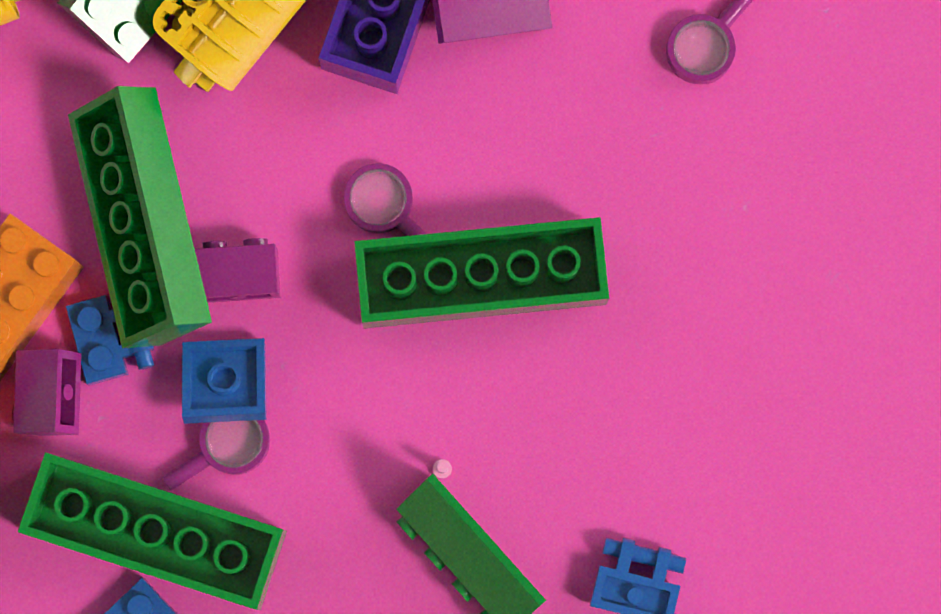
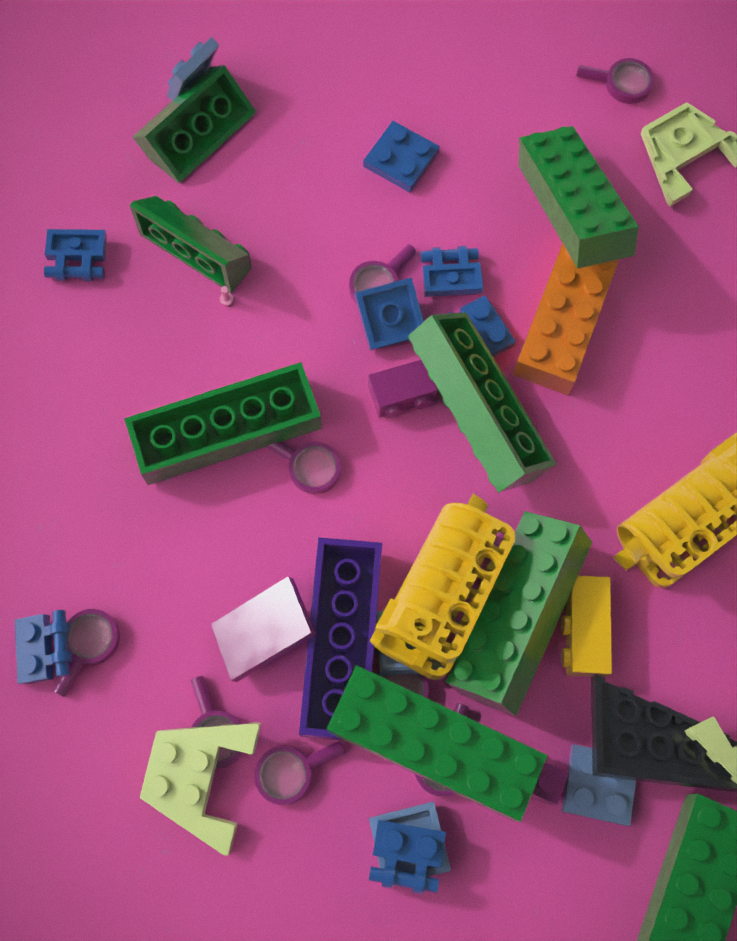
camera: 165 degrees right, 10 degrees down
(47, 392) = (509, 279): magenta brick -> none
(122, 418) = (451, 279): none -> blue plate
(152, 531) = (410, 209): green brick -> none
(770, 48) = (34, 647): none -> plate

